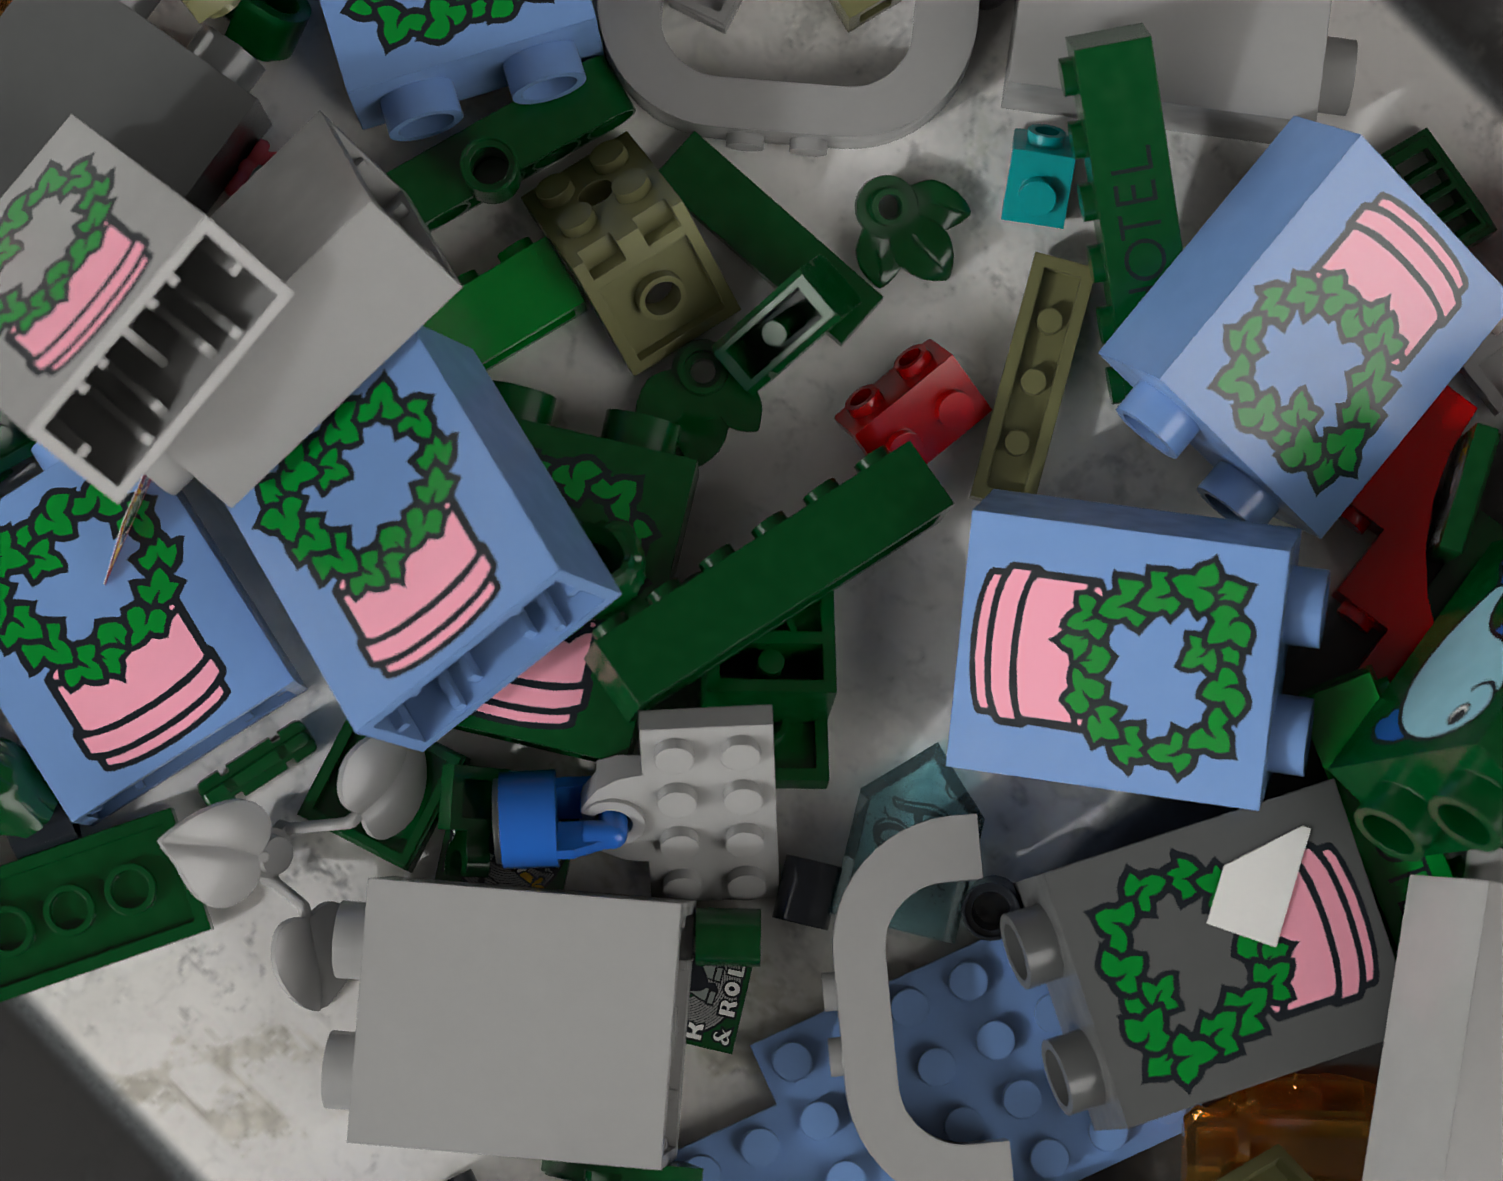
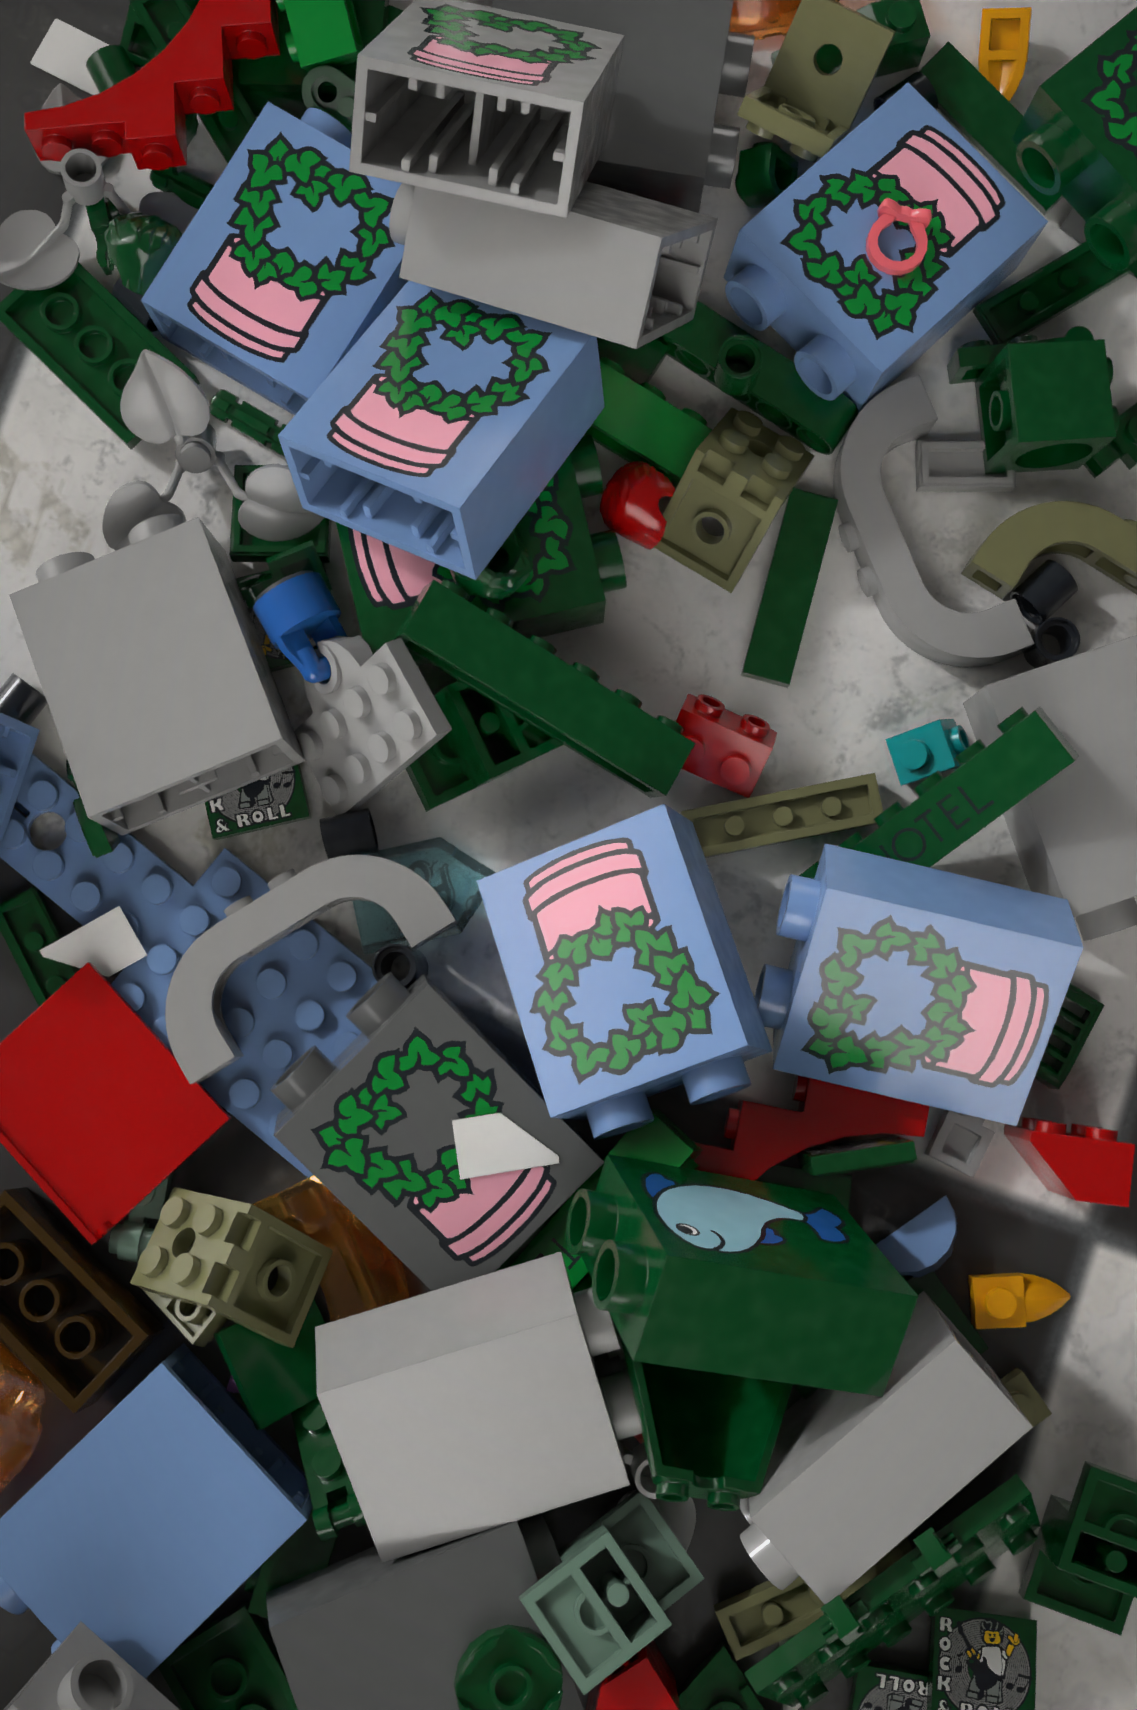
camera: 60 degrees right, 0 degrees up
(128, 520) = (359, 228): sticker -> none
(585, 369) = (632, 503): none -> red hair
(700, 408) = (647, 601): dark green plate -> none
(728, 937) = (288, 793): dark green beam -> none
(786, 324) = (735, 622): dark green brick -> none
(914, 235) = (842, 685): dark green plate -> none

